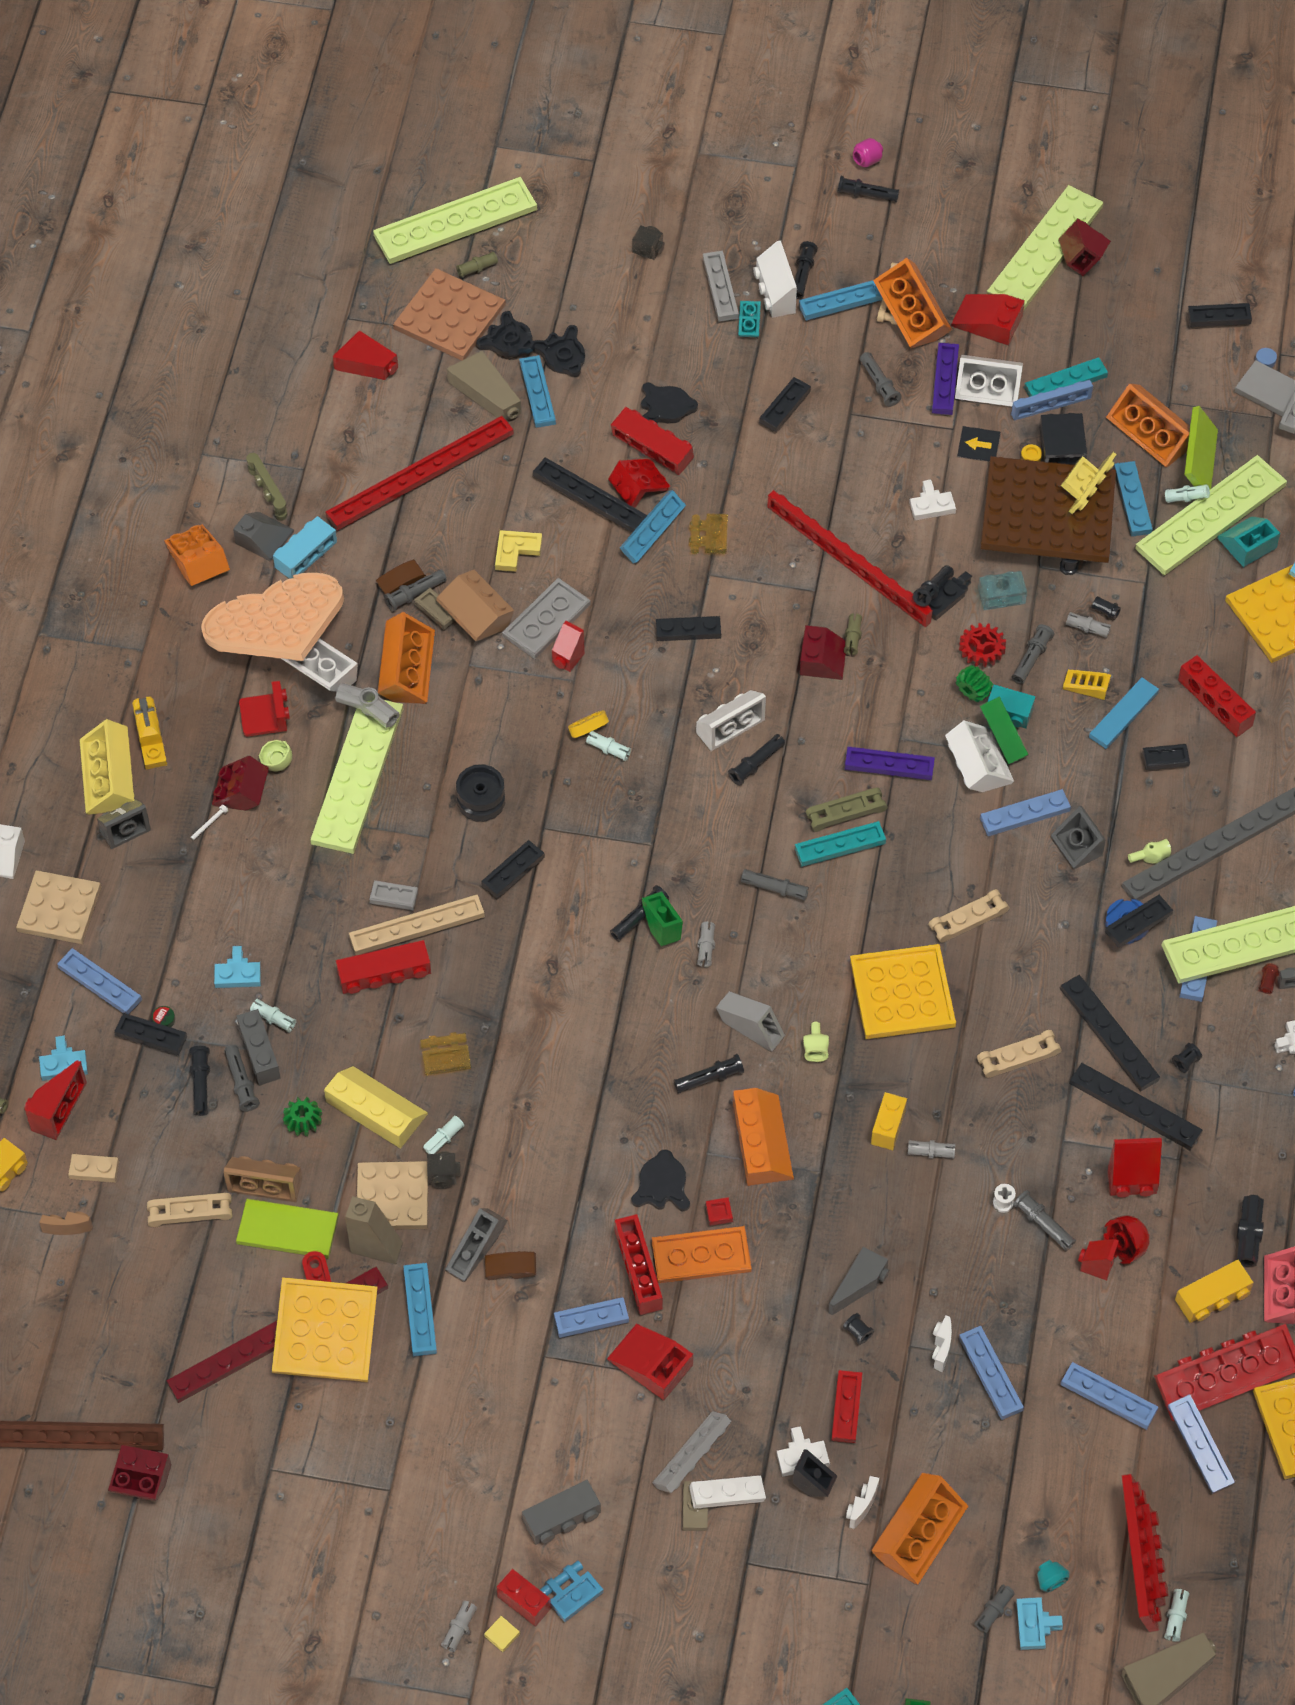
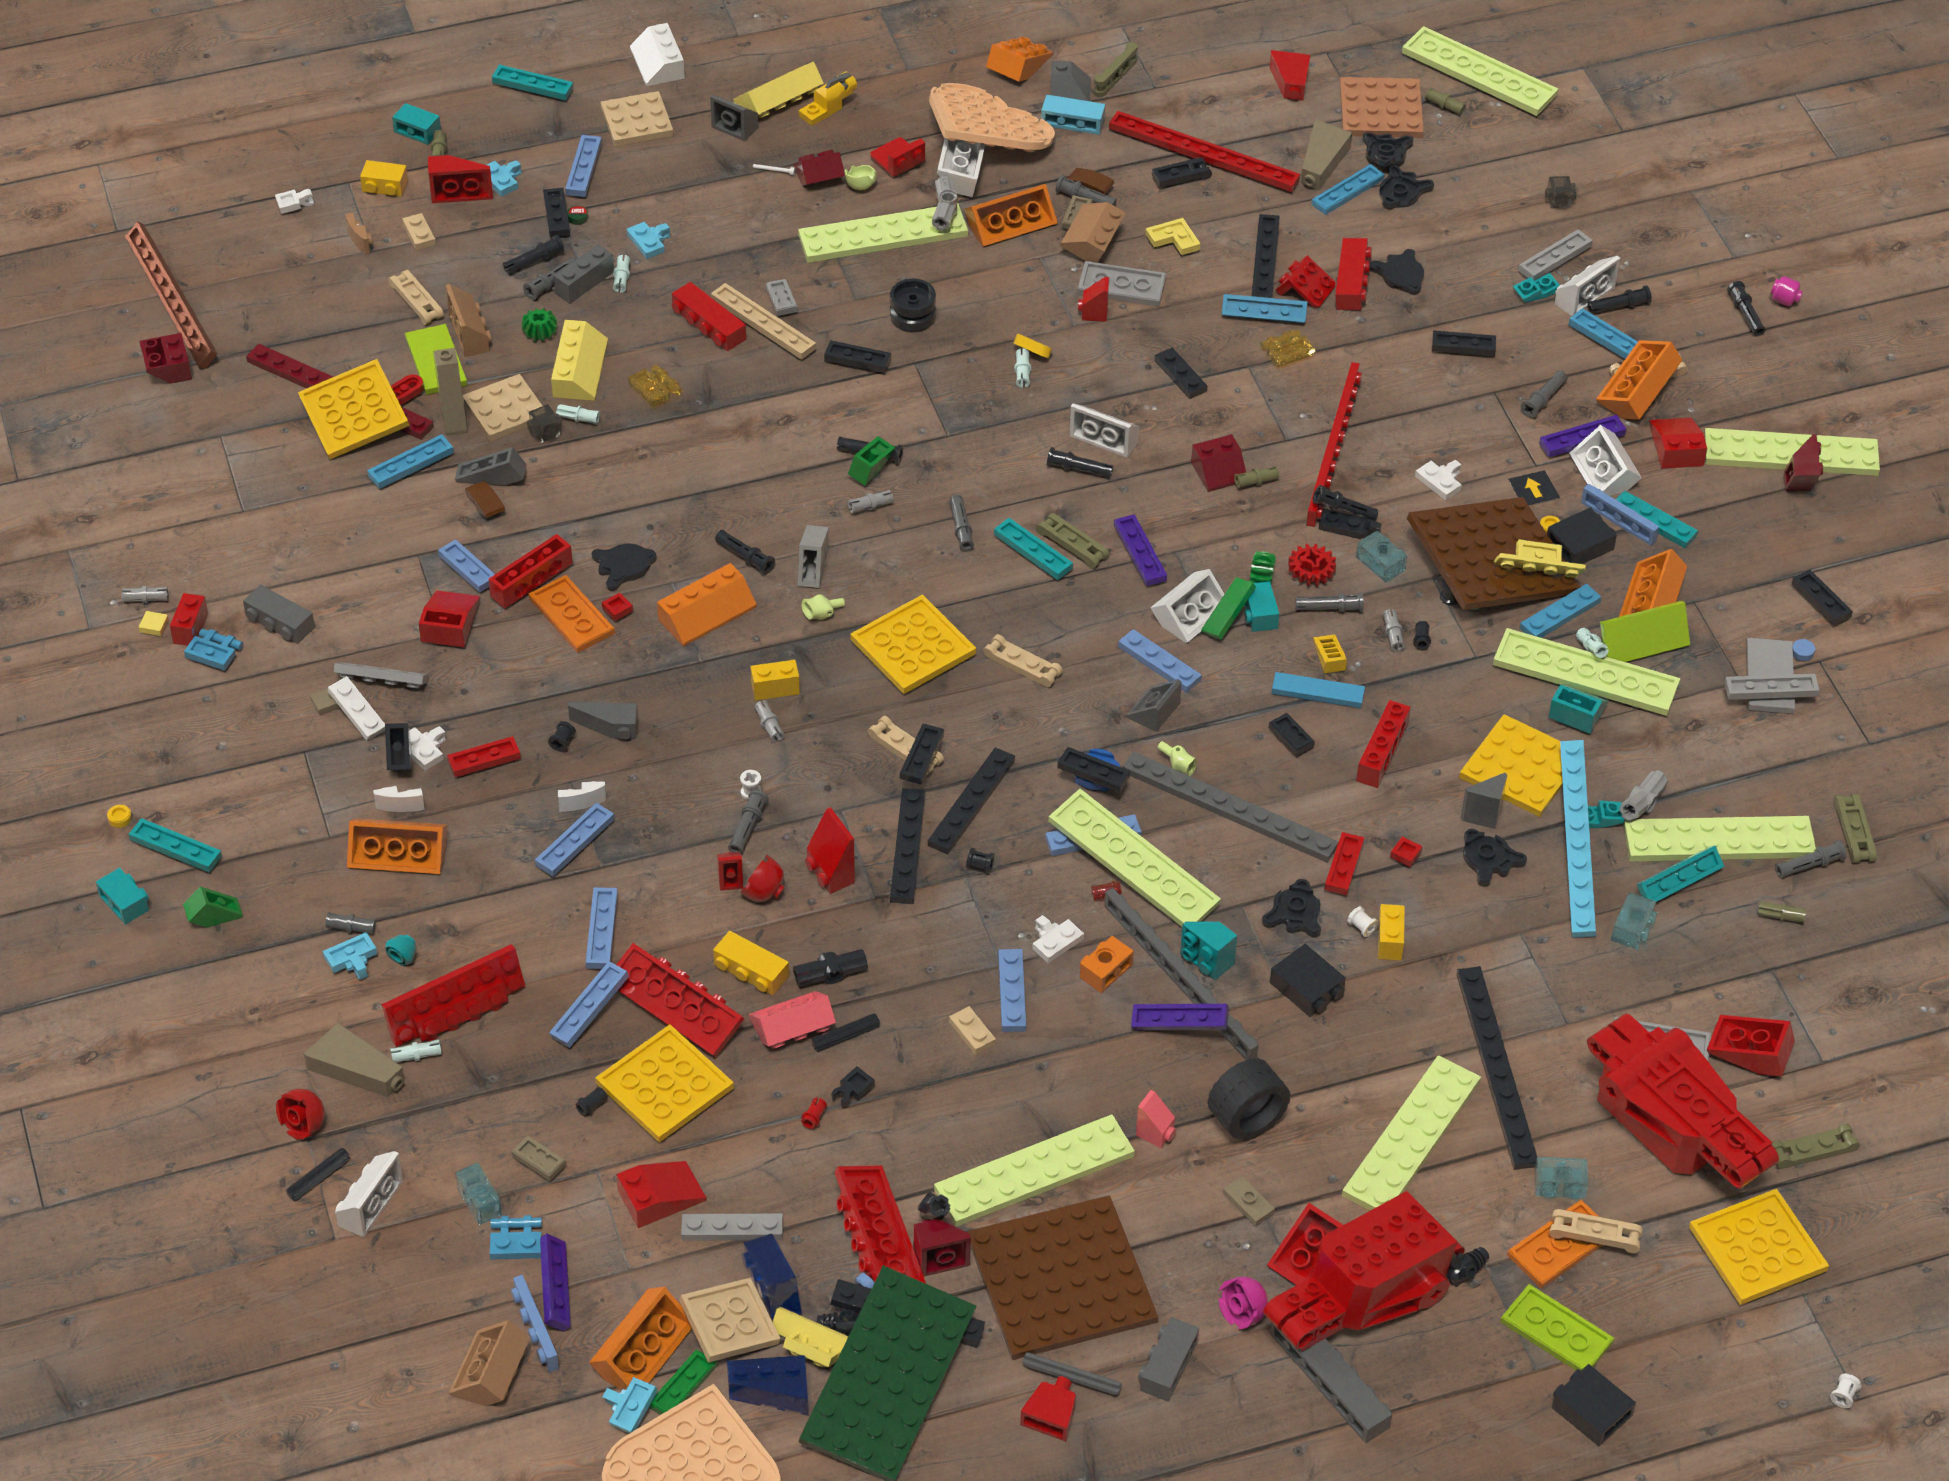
camera: 60 degrees right, 10 degrees down
(436, 504) = (1181, 172): none -> black plate
(1050, 1044) = (921, 754): none -> black plate

